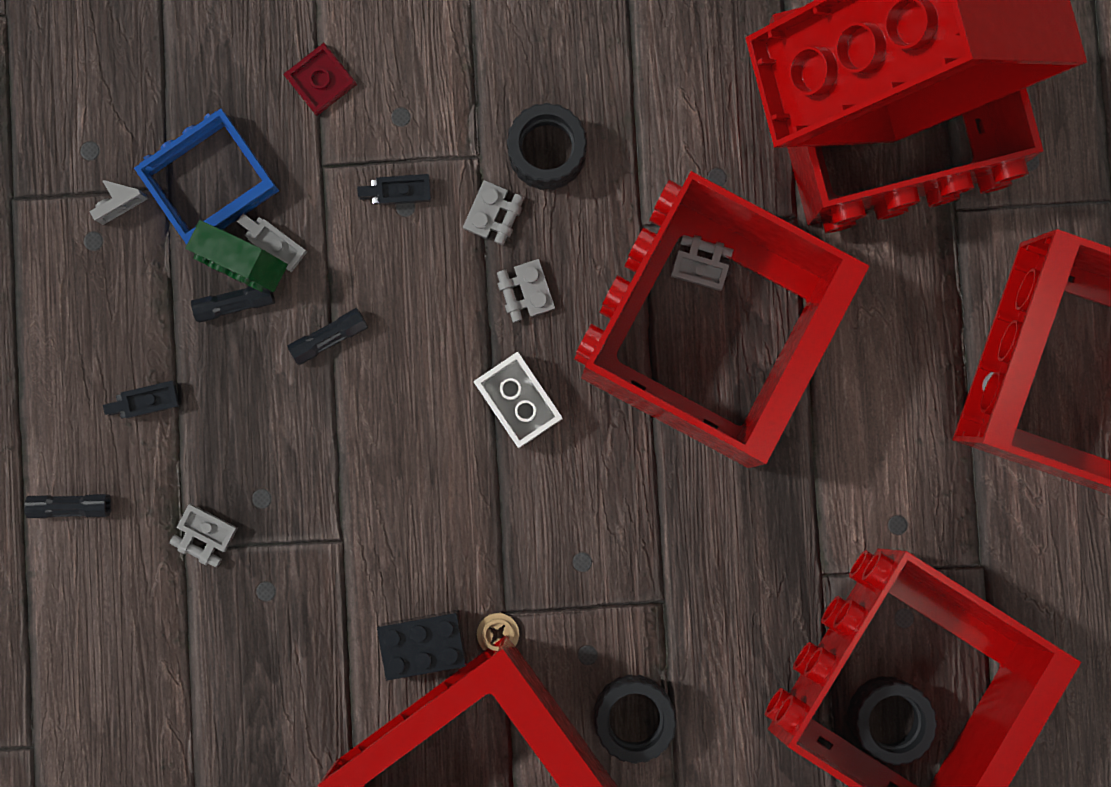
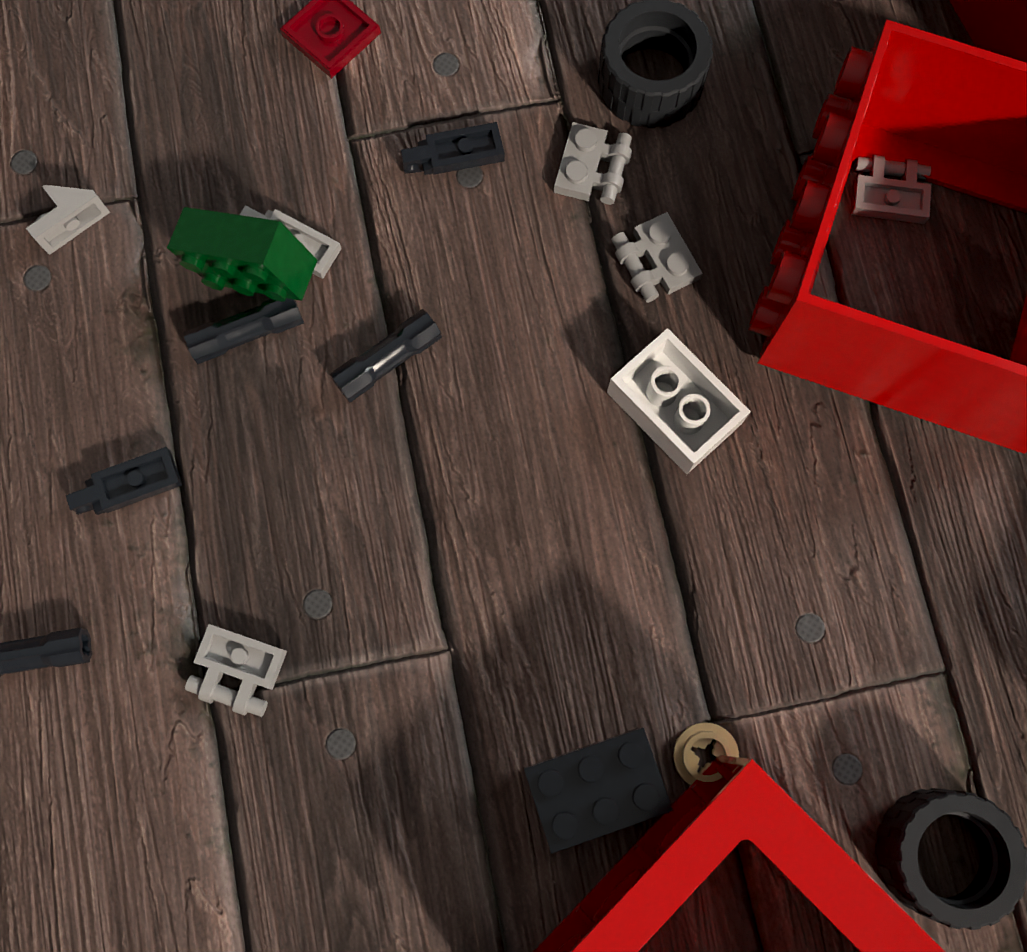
camera: 10 degrees left, 10 degrees down
(191, 137) = (162, 123): blue window -> none

